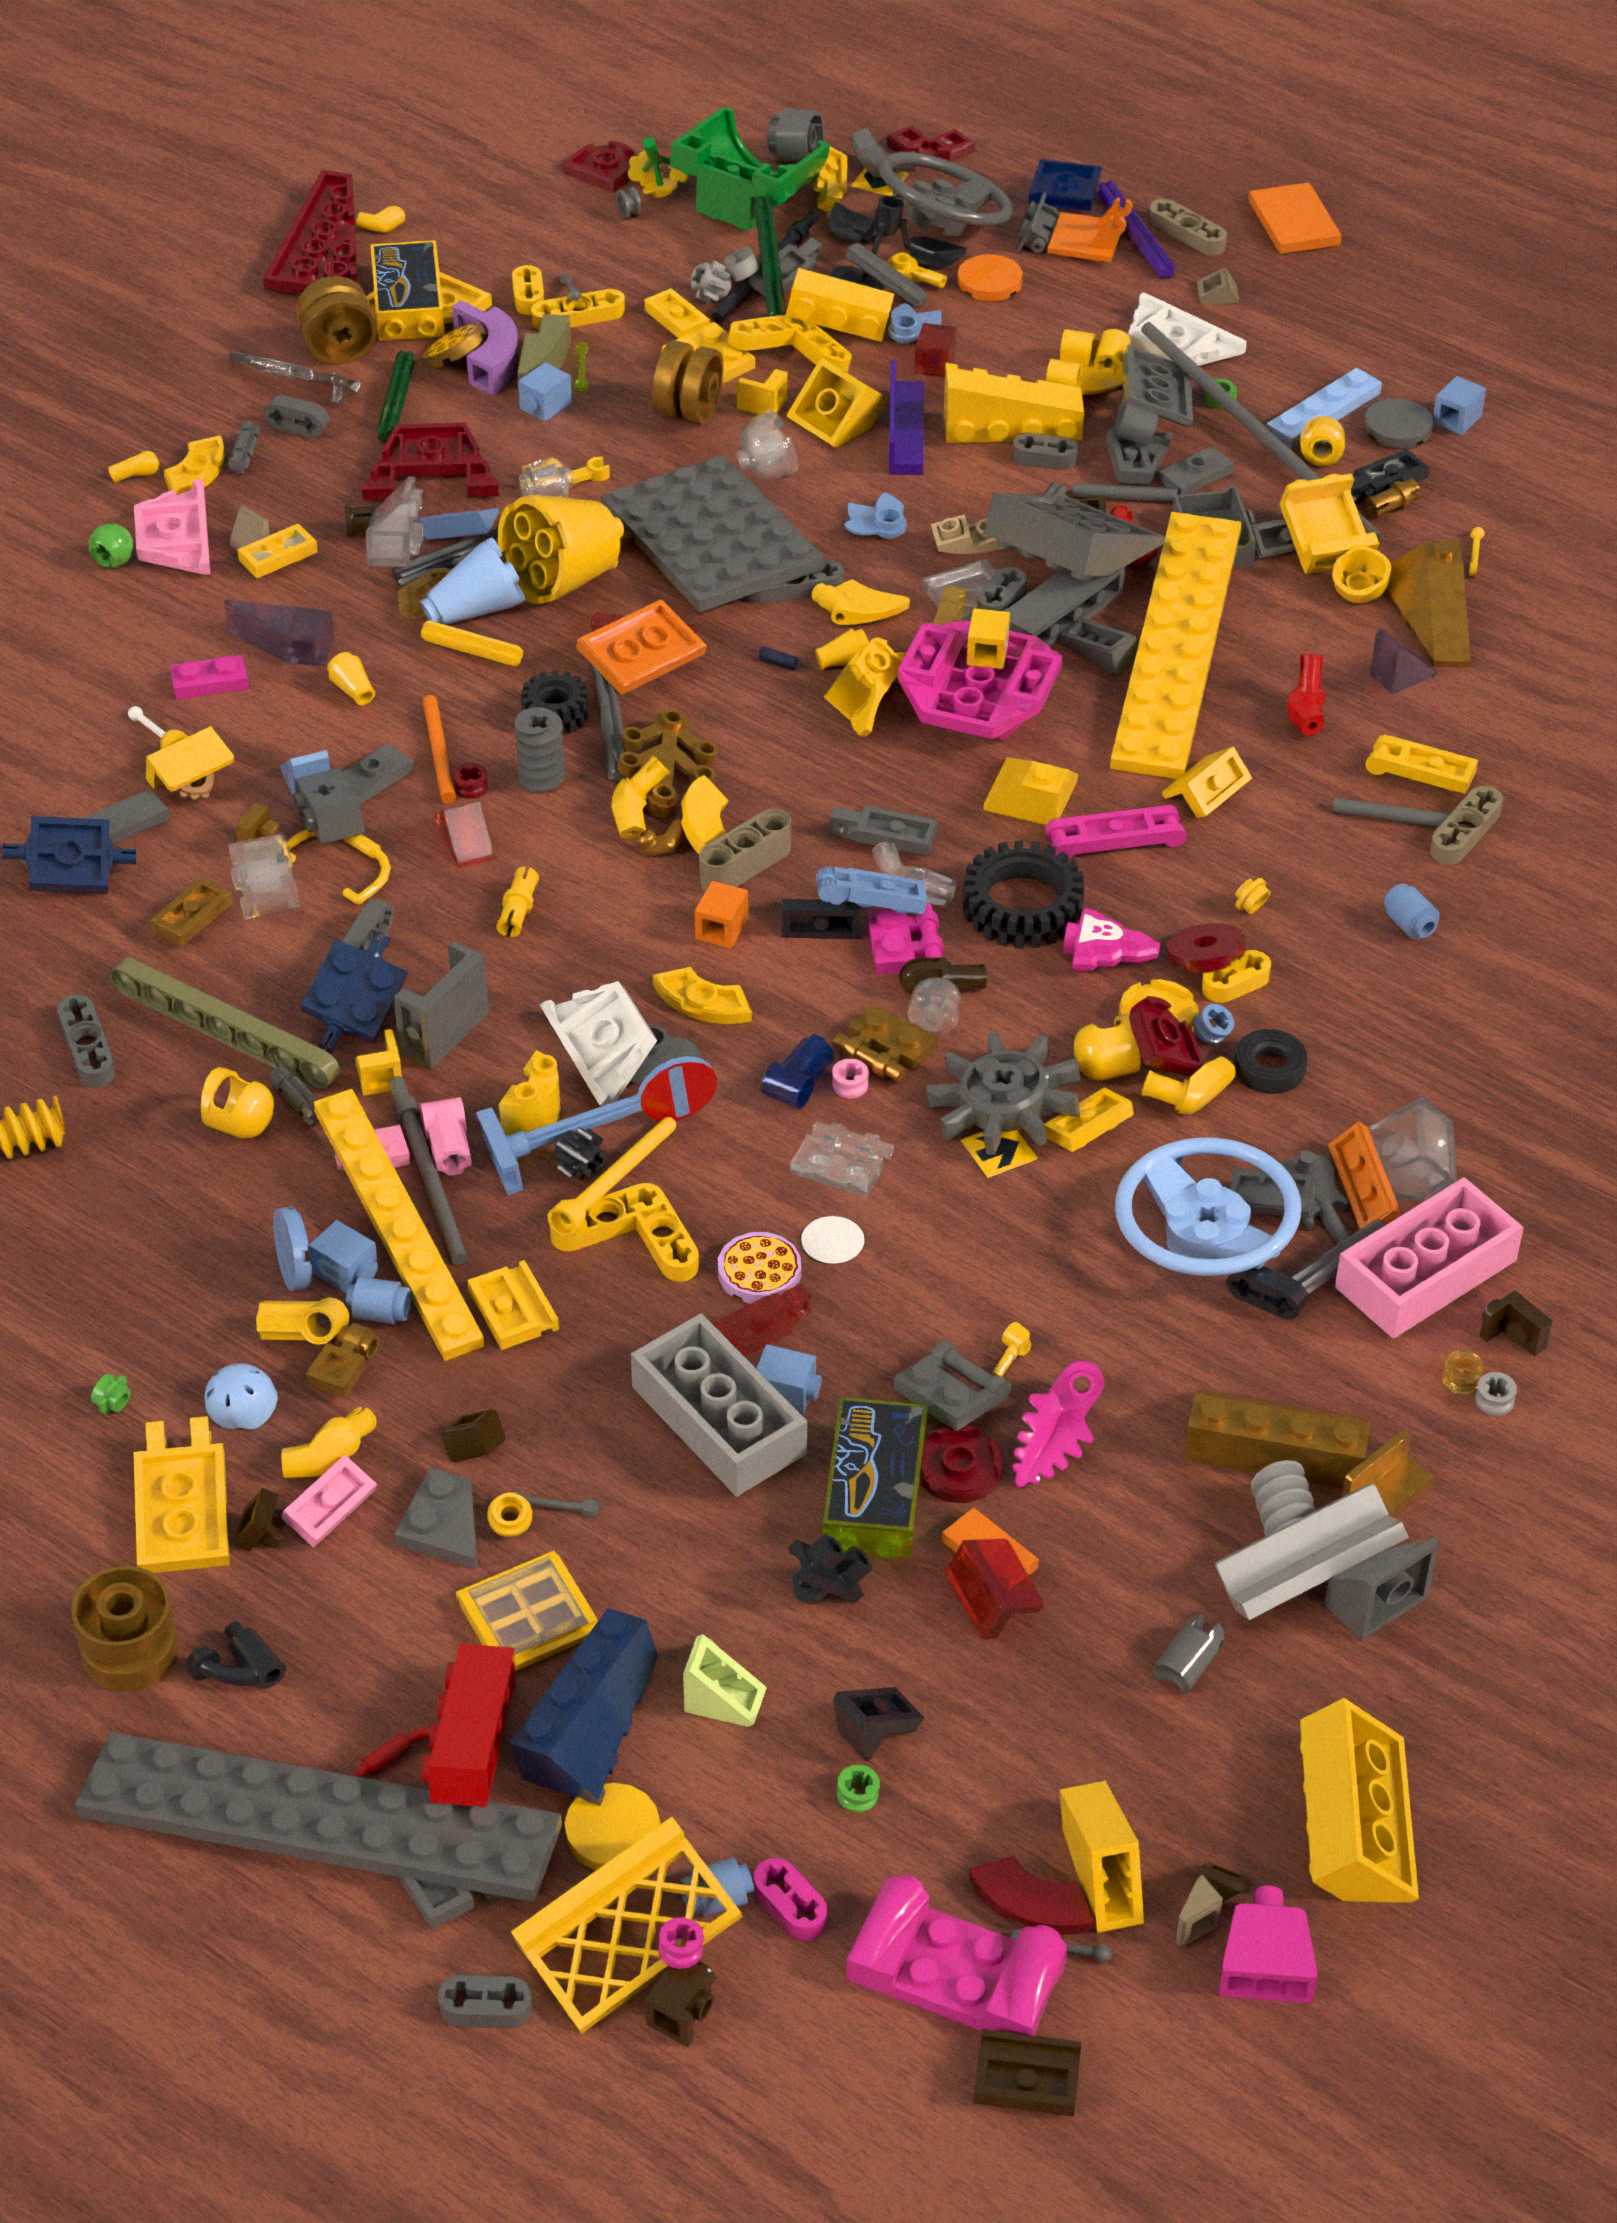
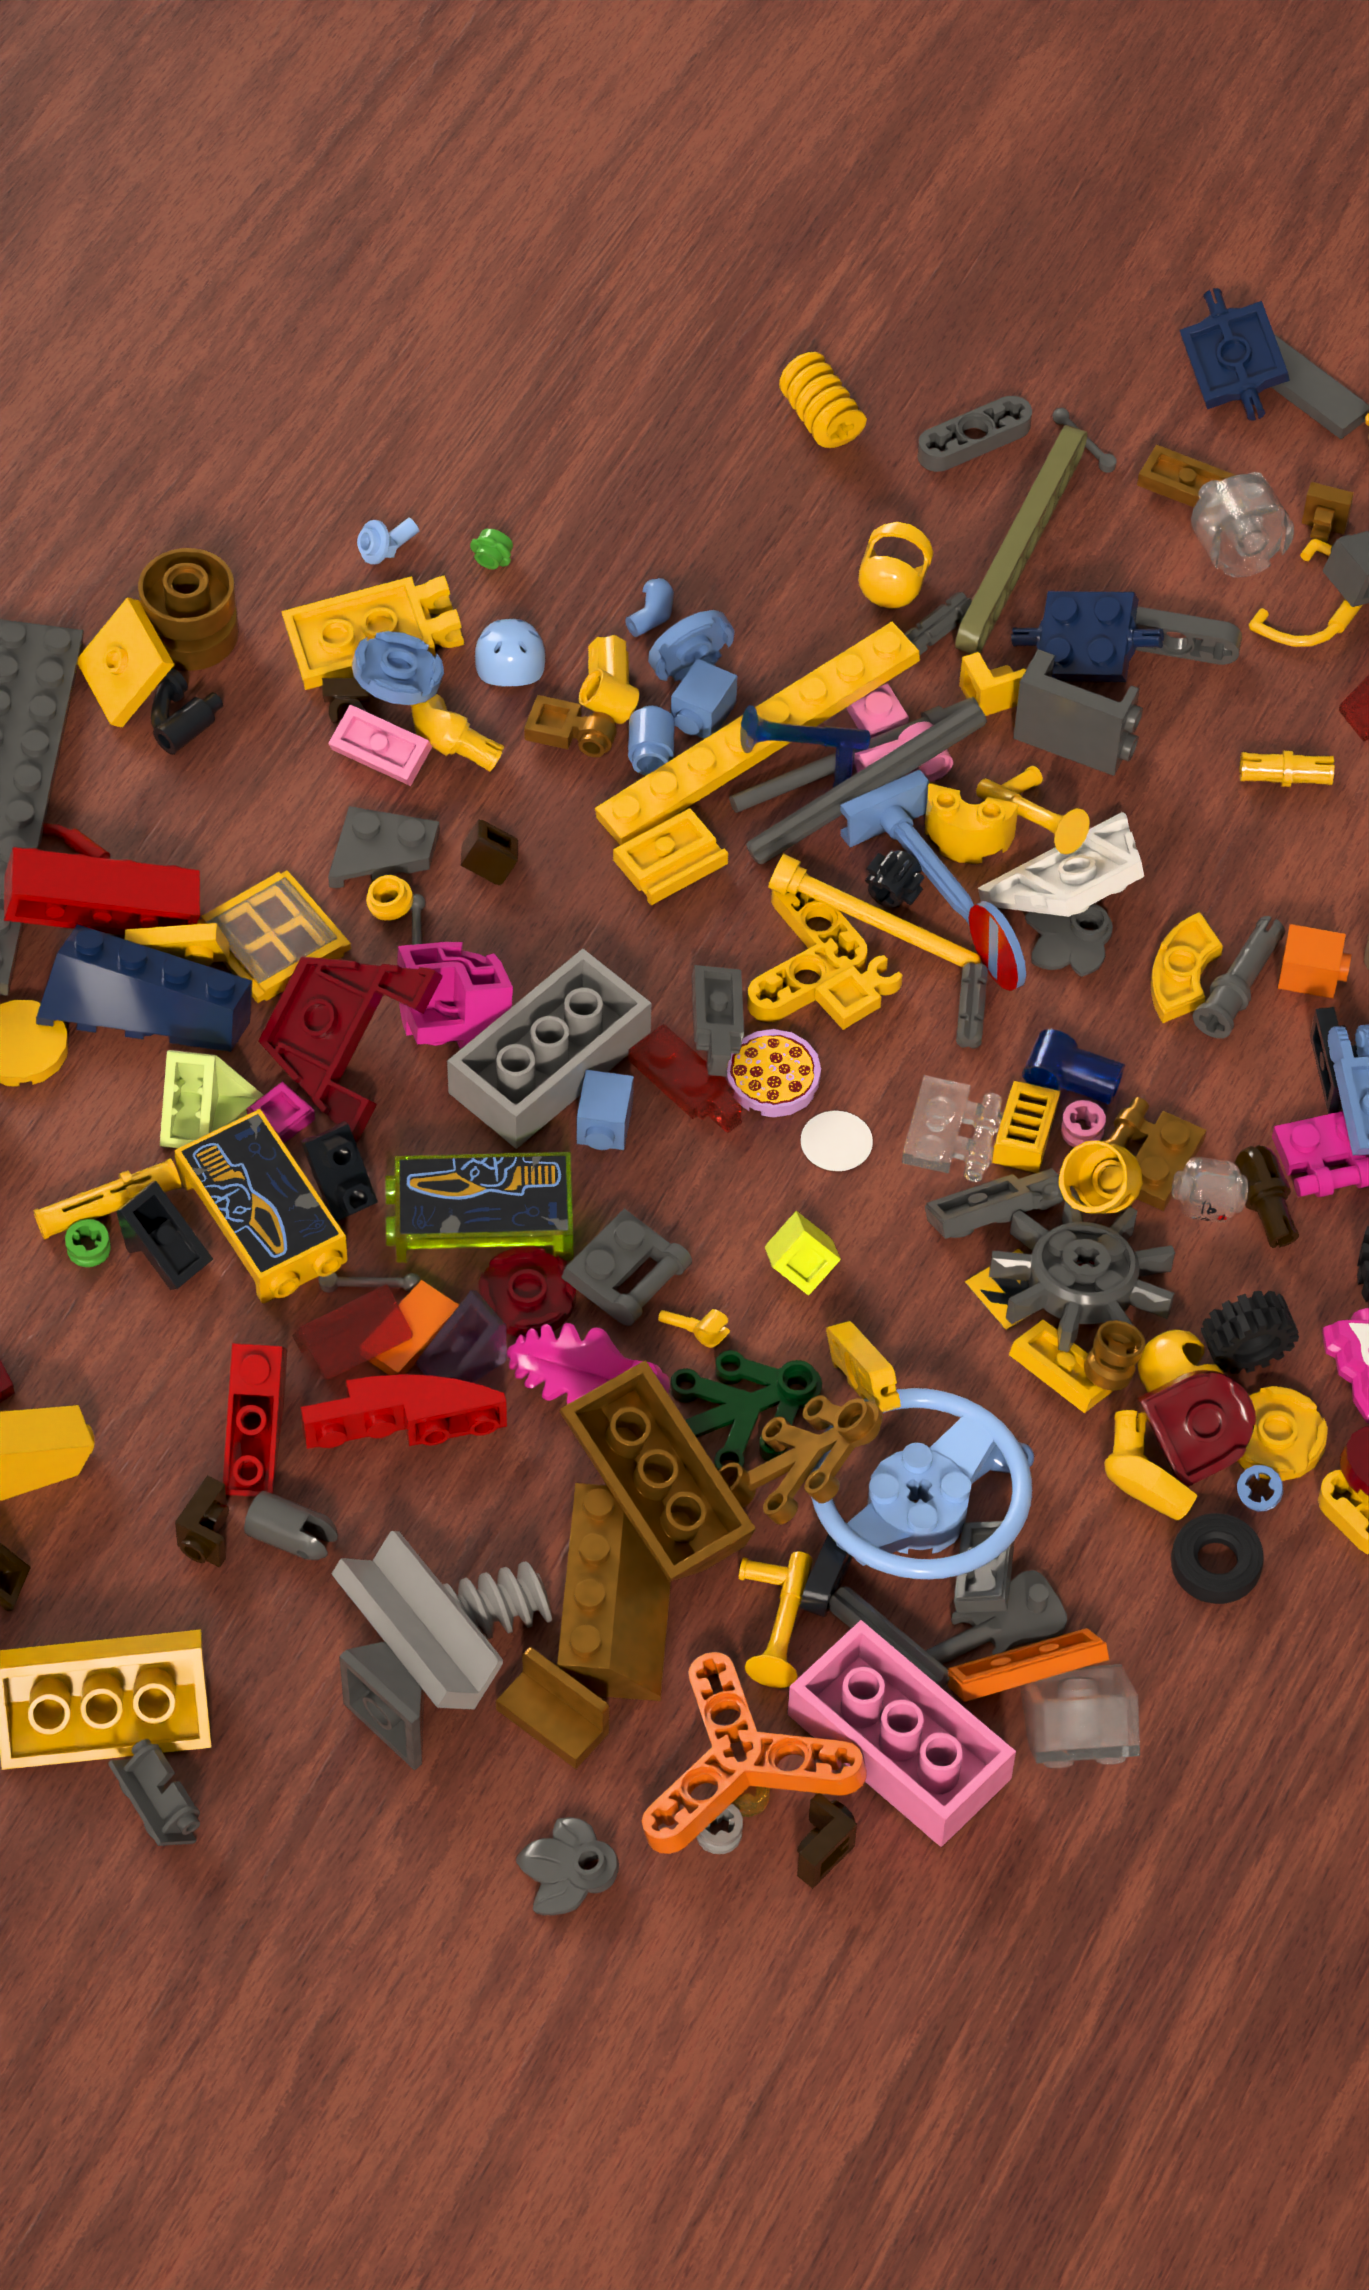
camera: 80 degrees right, 10 degrees up
(71, 1480) = (377, 543): none -> light blue plate
(84, 983) = (1107, 462): none -> dark grey hinge
(178, 1686) = (125, 662): none -> yellow plate
(220, 1282) = (656, 610): none -> medium blue arm
(256, 1465) = (397, 668): none -> medium blue tile
(415, 1205) = (757, 730): none -> clear blue piece
(479, 1152) = (883, 771): none -> dark grey axle
(501, 1077) = (1069, 829): none -> yellow piece
(546, 1658) = (192, 942): none -> yellow plate
(647, 1466) = (467, 998): none -> dark pink brick
(655, 1566) = (324, 1020): none -> dark red wing
(691, 1200) = (855, 995): none -> yellow plate
(701, 1289) = (717, 1015): none -> dark grey hinge
(716, 1129) = (972, 1005): none -> dark grey axle
(735, 1625) = (284, 1111): none -> dark pink tile
(738, 966) = (1232, 990): none -> dark grey pin
(809, 1748) = (105, 1198): none -> yellow pin
(845, 1636) = (263, 1205): none -> panel
(867, 1110) = (1020, 1153): none -> yellow slope
(923, 1055) = (1103, 1177): none -> yellow helmet
(924, 1142) = (993, 1202): none -> dark grey hinge
(926, 1606) = (332, 1282): none -> dark grey hinge
(954, 1267) = (802, 1253): none -> neon yellow panel
(1020, 1501) = (468, 1343): none -> slope
(1071, 1666) = (254, 1418): none -> red slope
(1082, 995) = (1249, 1332): none -> black tyre
(1083, 1556) = (422, 1405): none -> red slope
(1085, 1293) = (743, 1406): none -> dark green plant
(1096, 1071) = (1114, 1355): none -> pearl gold wheel
(1114, 1207) = (863, 1365): none -> yellow piece
(1177, 1266) = (854, 1426): none -> pearl gold plant
(1180, 1717) = (201, 1521): none -> dark brown bracket
(1184, 1360) = (659, 1473): none -> pearl gold slope
(1268, 1317) = (772, 1666): none -> yellow piece
(1444, 1777) = (166, 1813): none -> dark grey hinge
(1454, 1376) = (733, 1777): none -> orange piece
(1528, 1498) = (560, 1866): none -> dark grey plate

